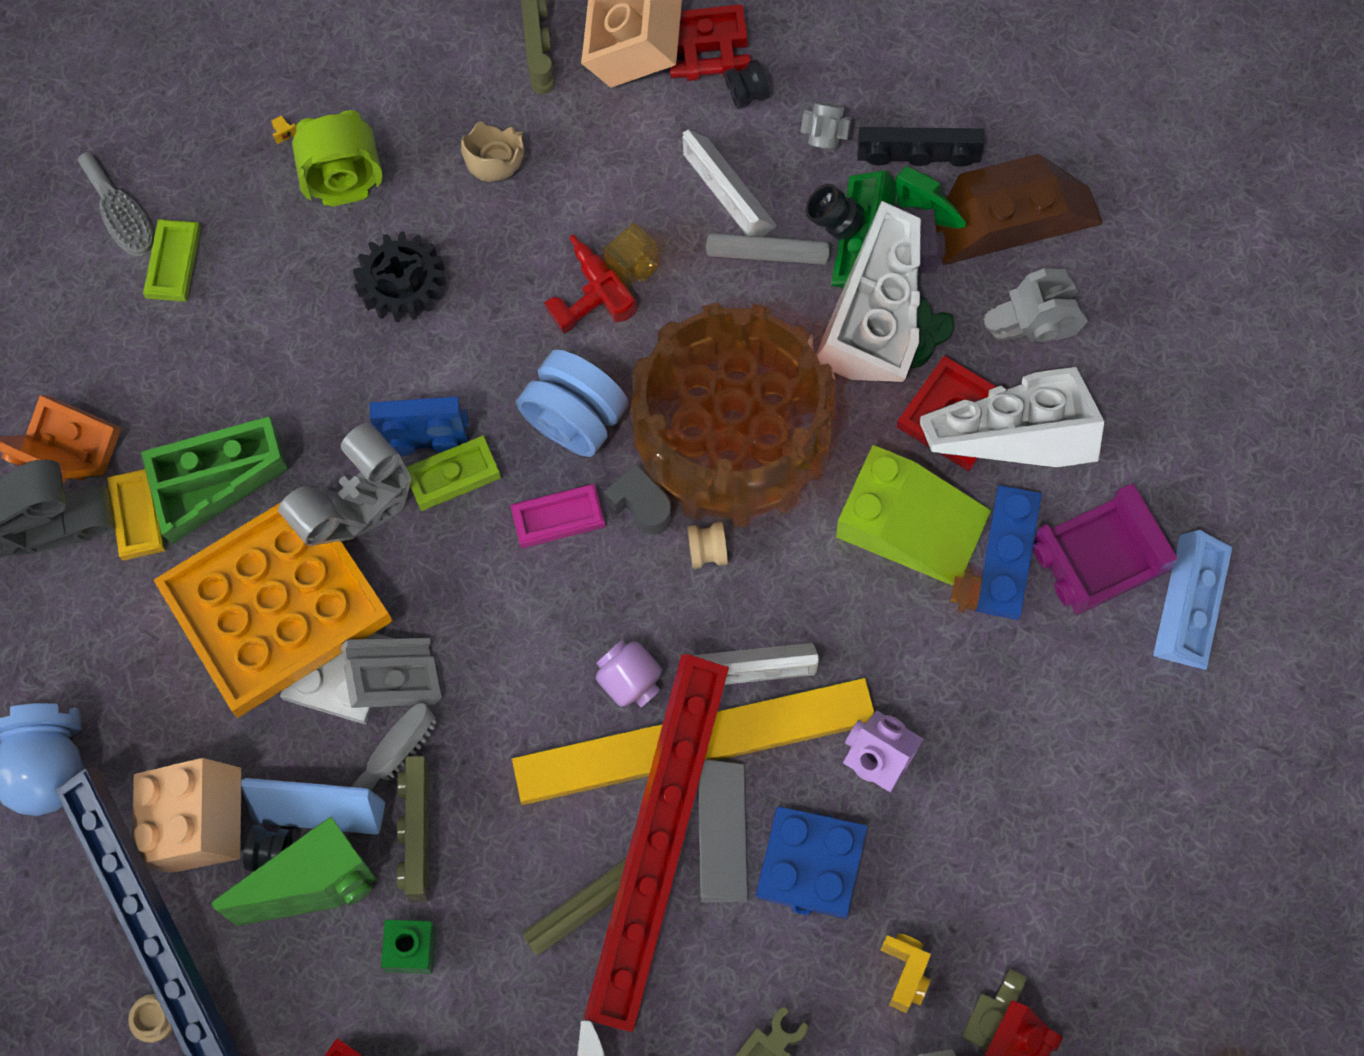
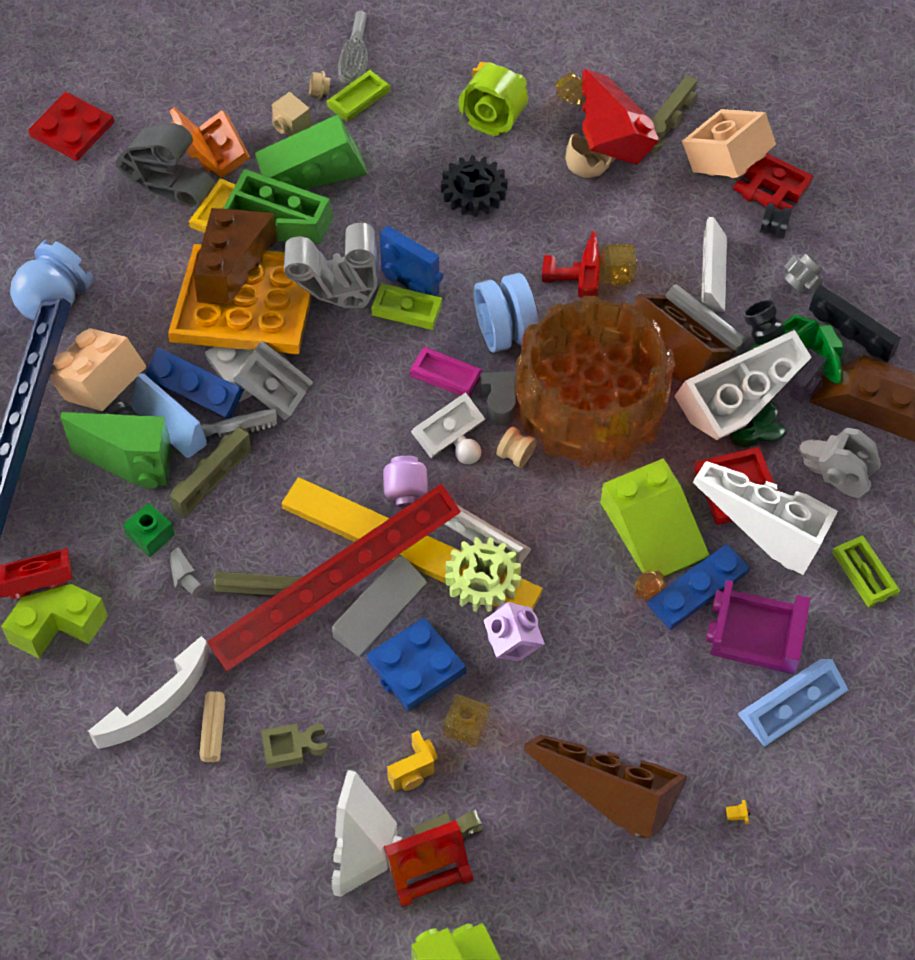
camera: 35 degrees right, 10 degrees down
(116, 280) = (319, 85): none -> tan plate
(121, 343) = (290, 115): none -> tan plate
(194, 378) = (313, 156): none -> bright green wedge
(214, 562) = (230, 251): none -> reddish brown wedge
(302, 741) = (194, 383): none -> blue plate
(401, 82) = (570, 88): none -> clear yellow plate
(485, 962) = (183, 573): none -> light grey bar
(493, 91) = (614, 121): none -> red wedge
(619, 578) = (449, 427): none -> white plate
(786, 707) = (480, 587): none -> yellowish green gear
(788, 288) = (692, 344): none -> reddish brown slope
(908, 895) = (466, 730): none -> clear yellow plate
(1123, 829) = (623, 793): none -> reddish brown wedge
(1142, 422) = (860, 585): none -> lime tile
(1240, 757) = (738, 812): none -> yellow piece

